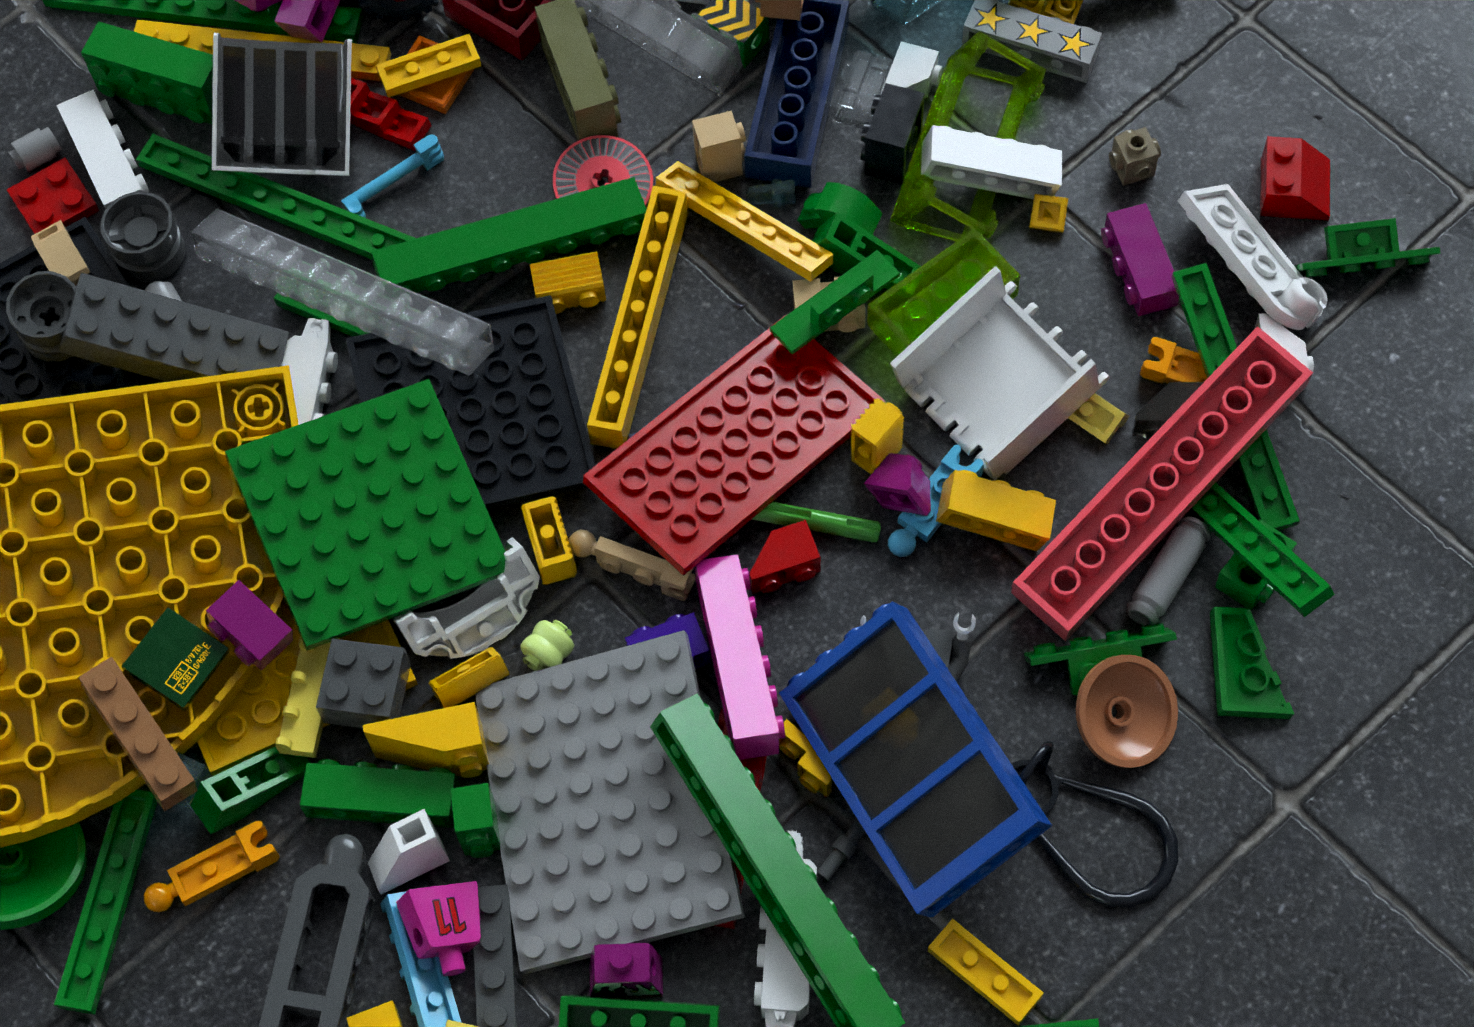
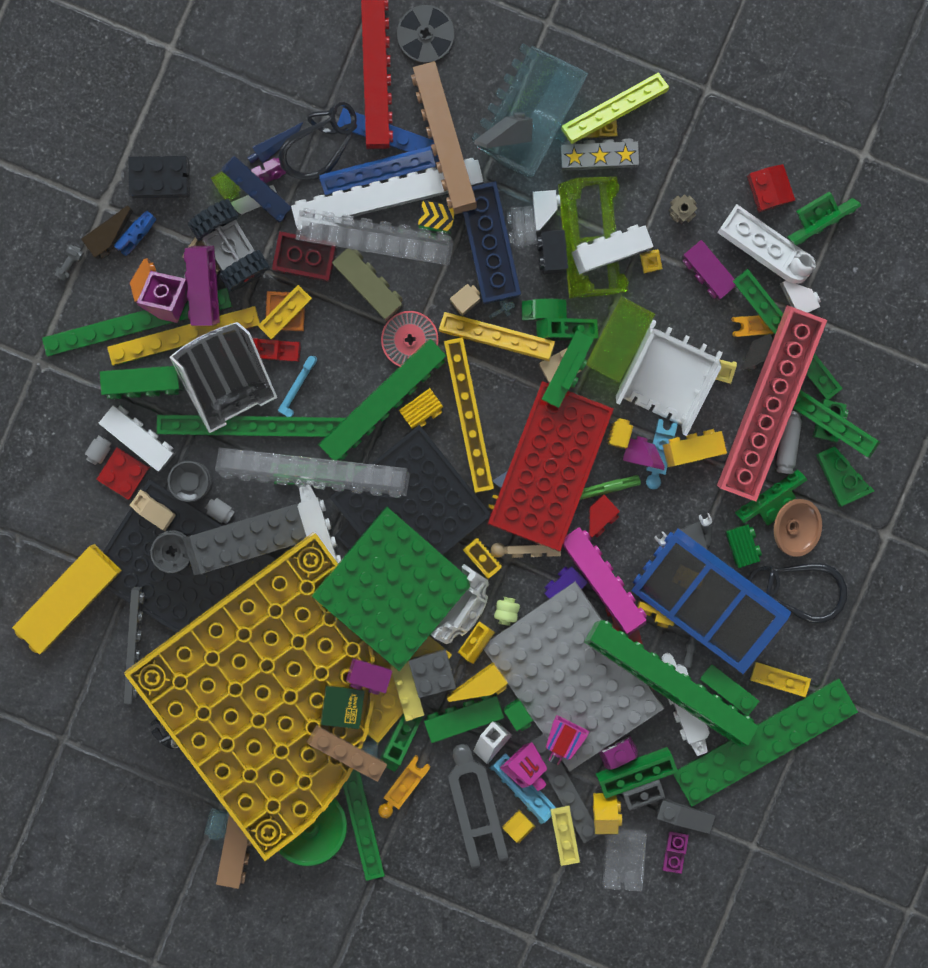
camera: 25 degrees left, 25 degrees up
(535, 896) = (564, 739): none -> torso
(884, 950) = (729, 690): none -> green slope
(1014, 707) = (743, 546): none -> green brick

